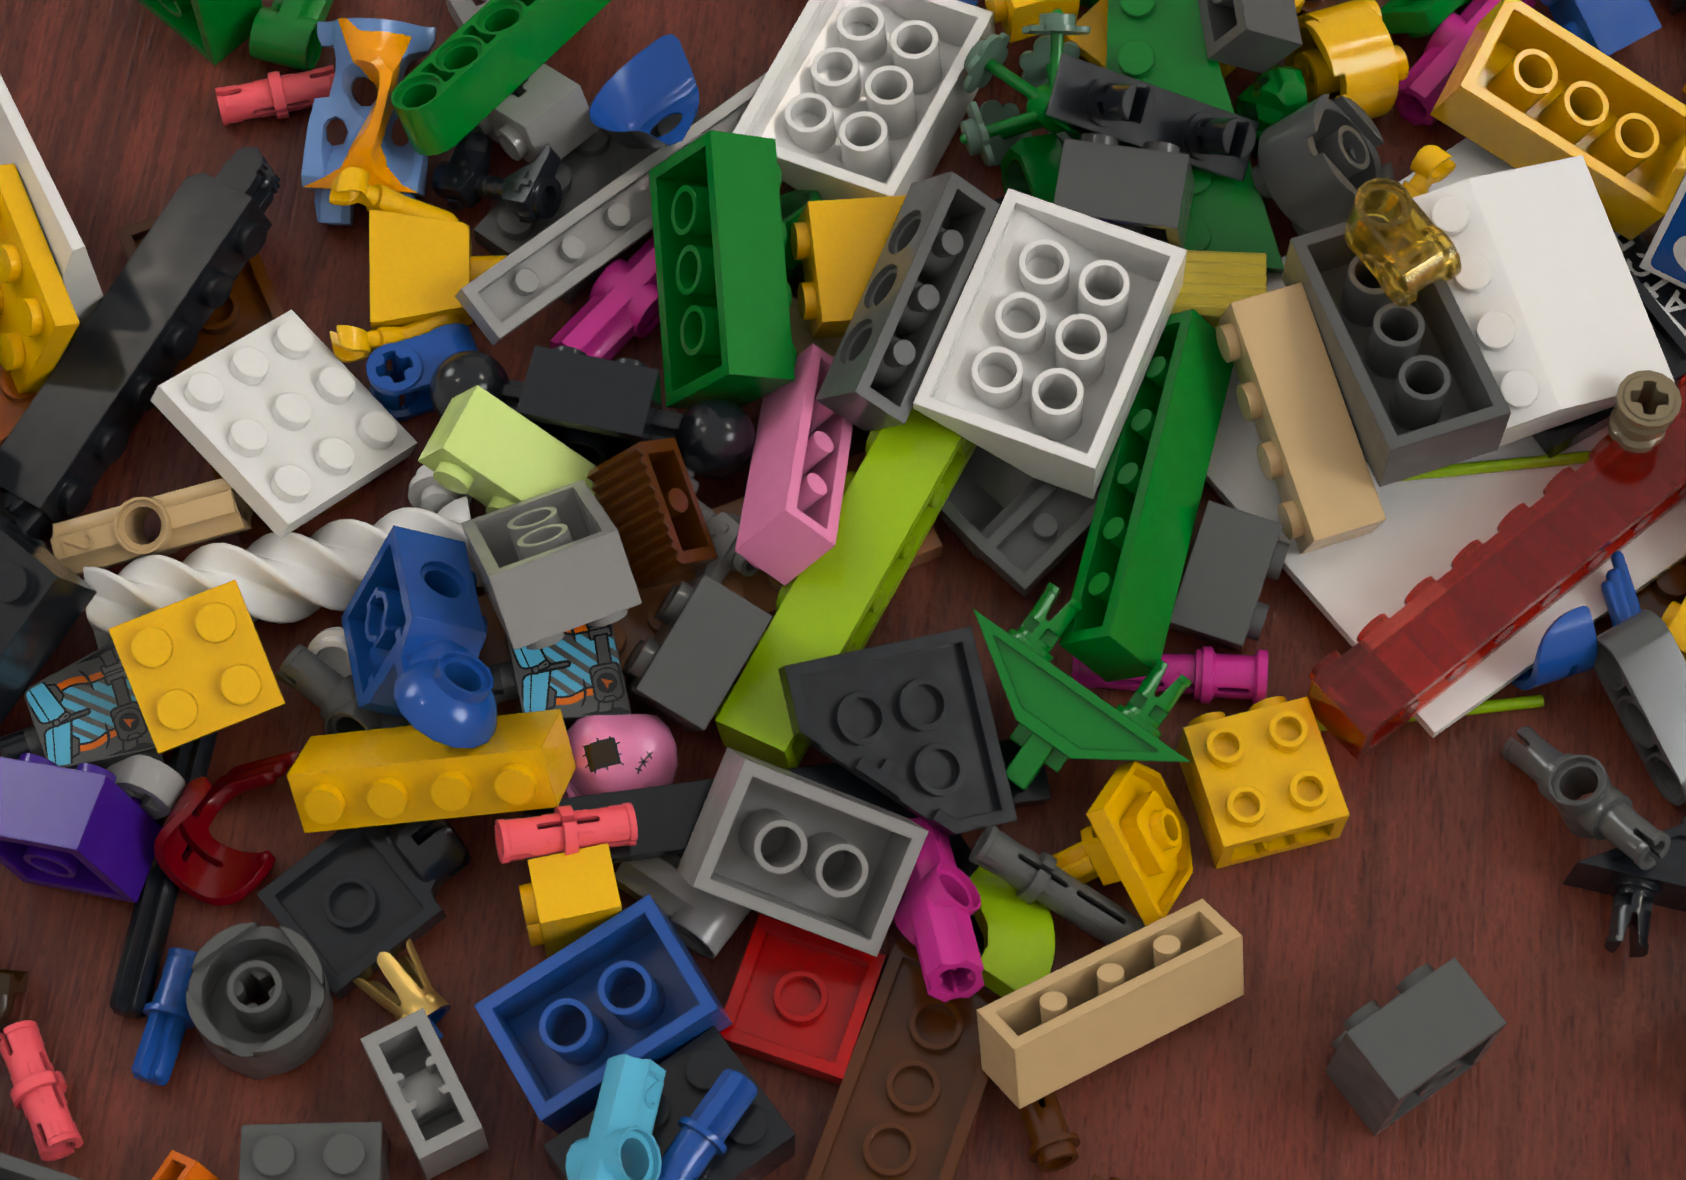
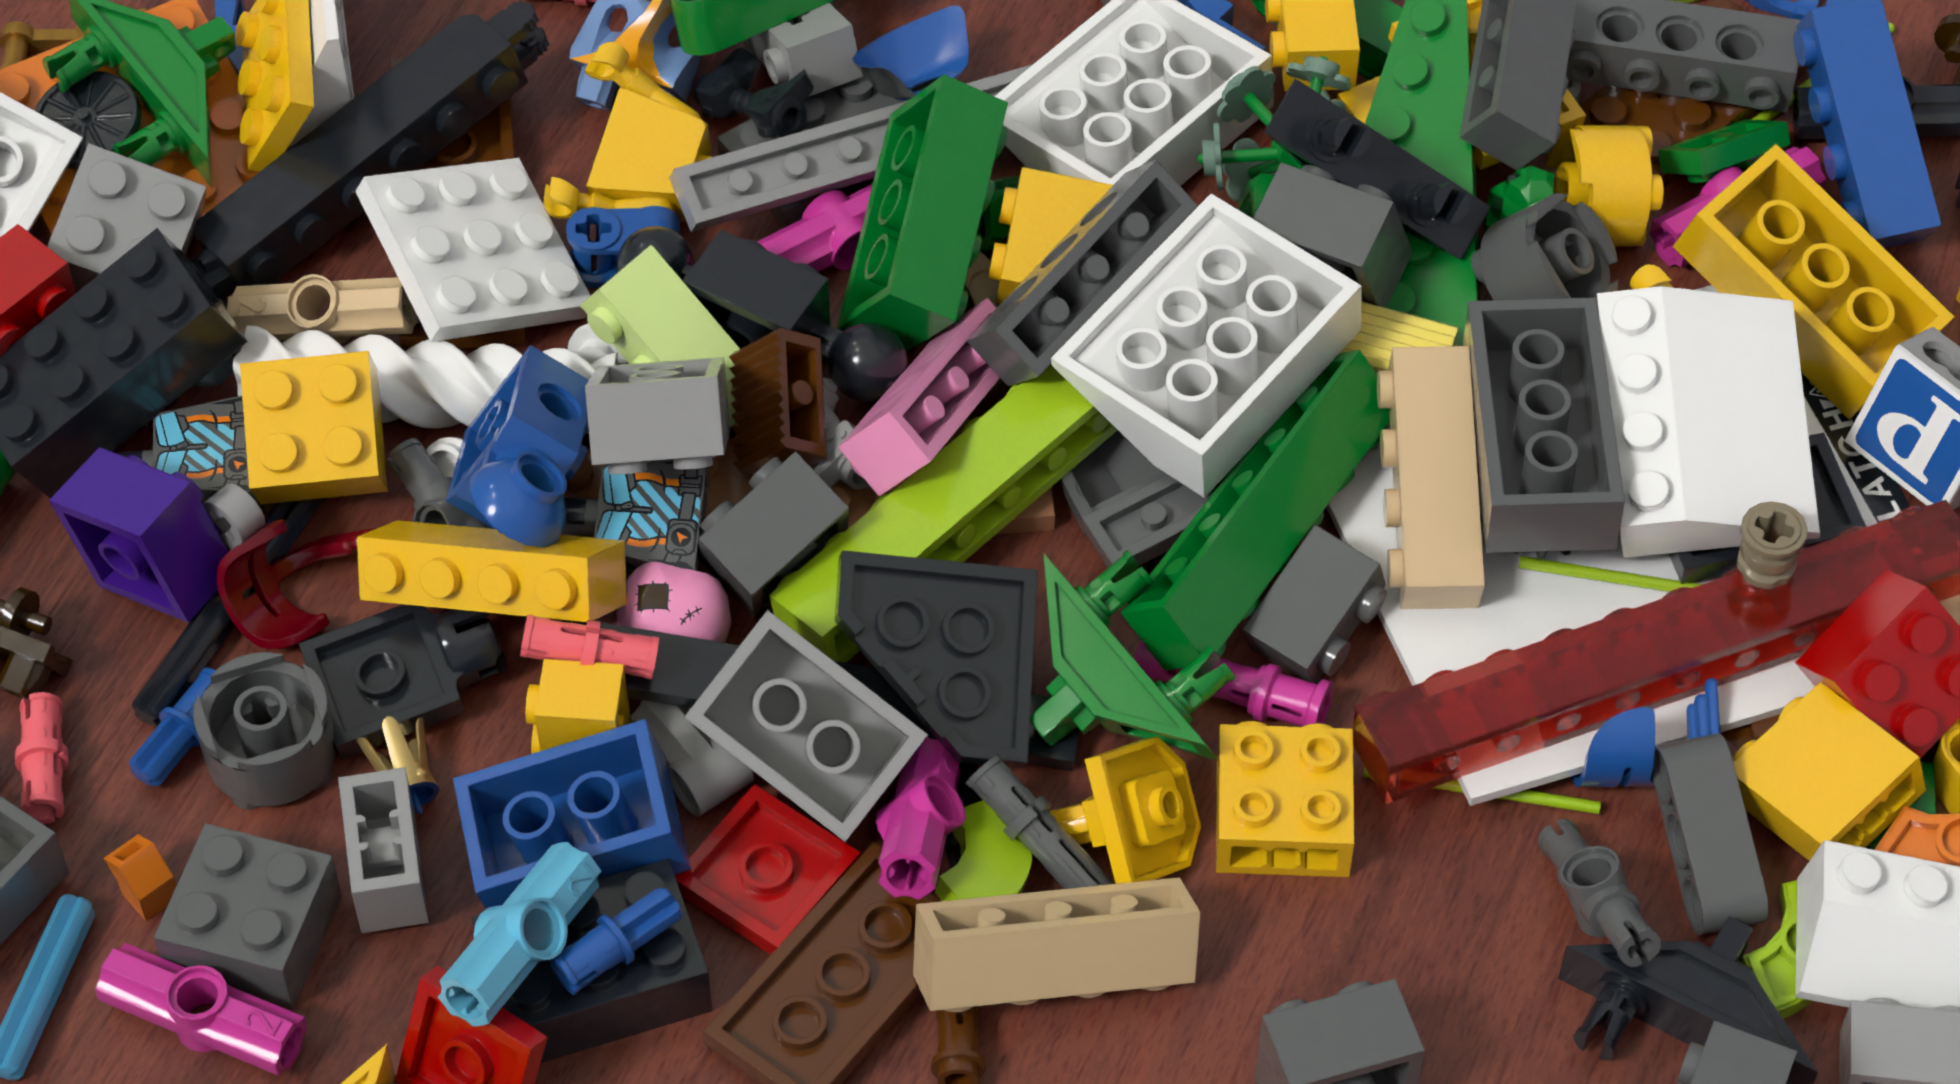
camera: 20 degrees right, 10 degrees down
(1406, 250) = (1566, 319): clear yellow piece -> none

